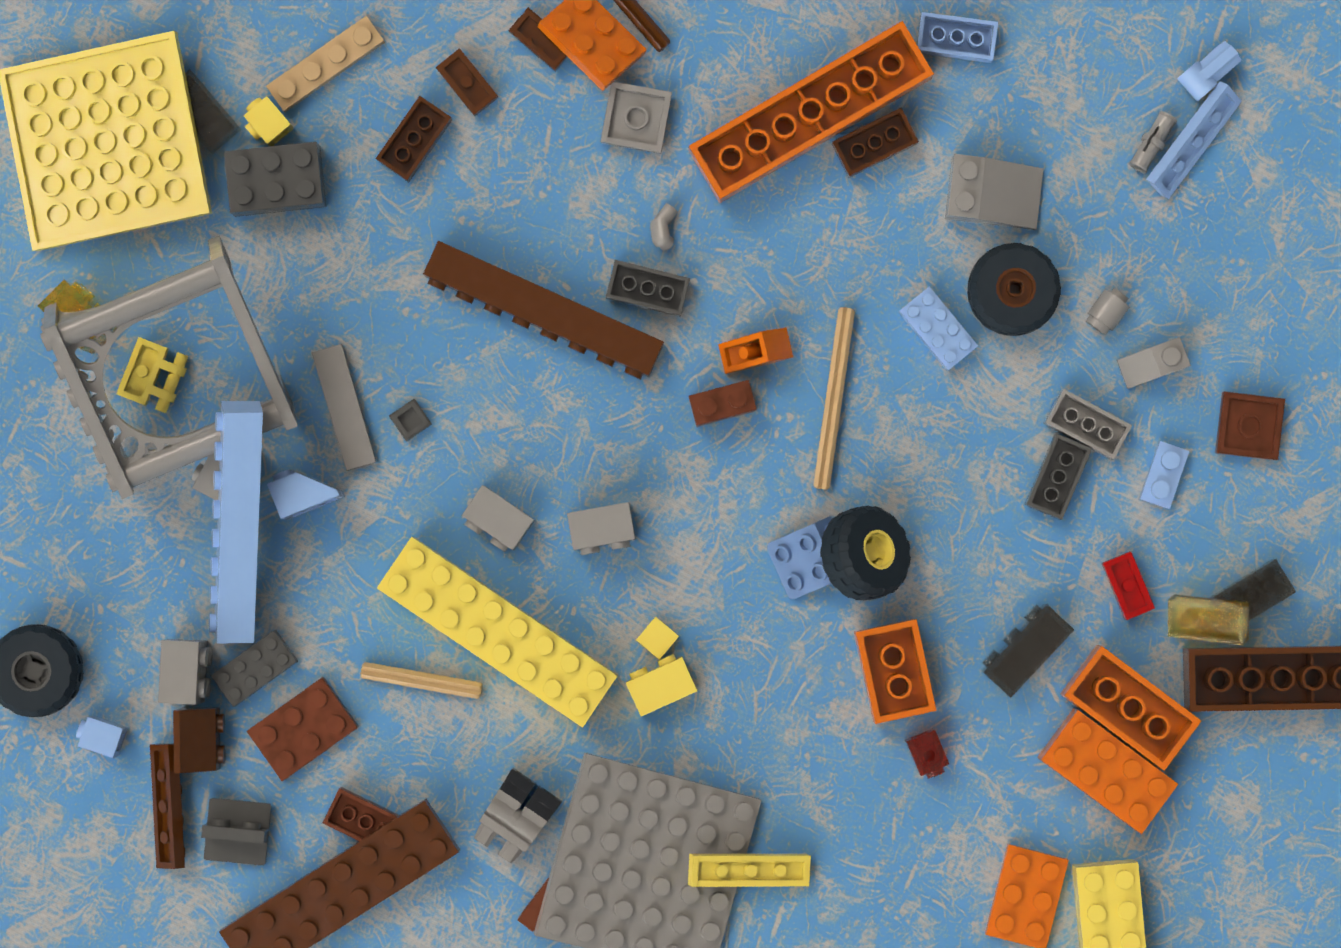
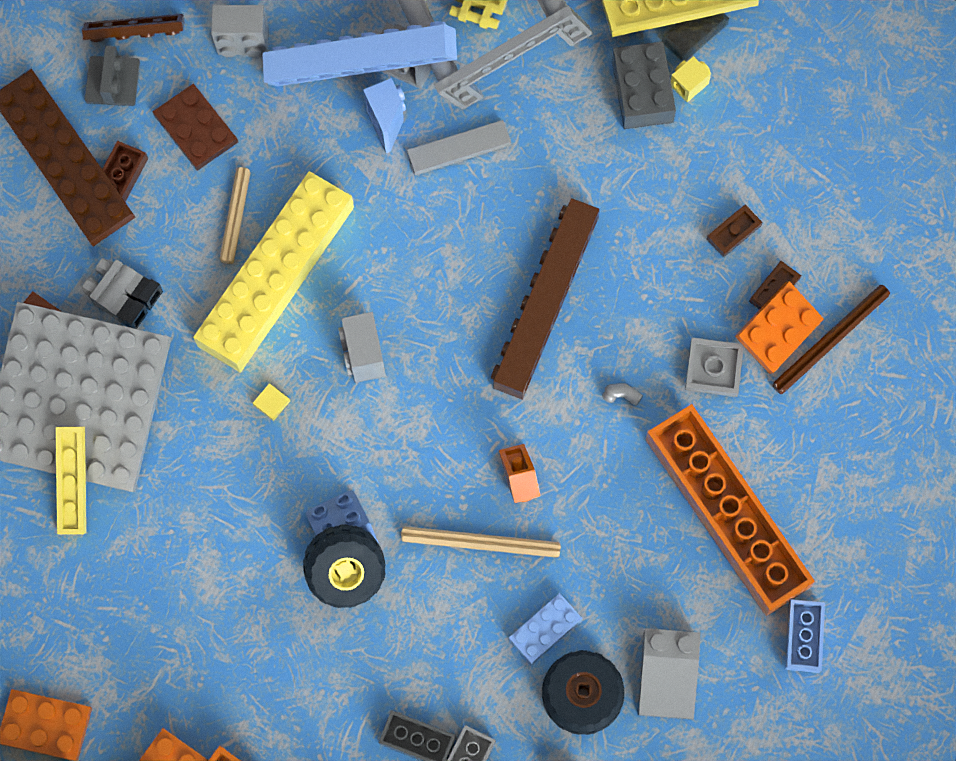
camera: 85 degrees right, 15 degrees down
(198, 739) = (185, 42): reddish brown slope -> none
(254, 668) = (244, 88): dark grey piece -> none
(325, 64) = (741, 122): tan plate -> none
(410, 420) = (450, 199): dark grey tile -> none
(414, 139) = (683, 191): reddish brown piece -> none
(497, 518) = (369, 268): light grey brick -> none
(647, 288) = (568, 381): dark grey piece -> none
(661, 685) = (230, 405): light yellow brick -> none
(722, 403) = (472, 445): copper brick -> none
(875, 142) = (706, 567): reddish brown piece -> none
(895, 671) = (242, 598): orange brick -> none
(927, 753) = (170, 631): clear red brick -> none
(1026, 649) = (263, 715): clear smoke brick -> none

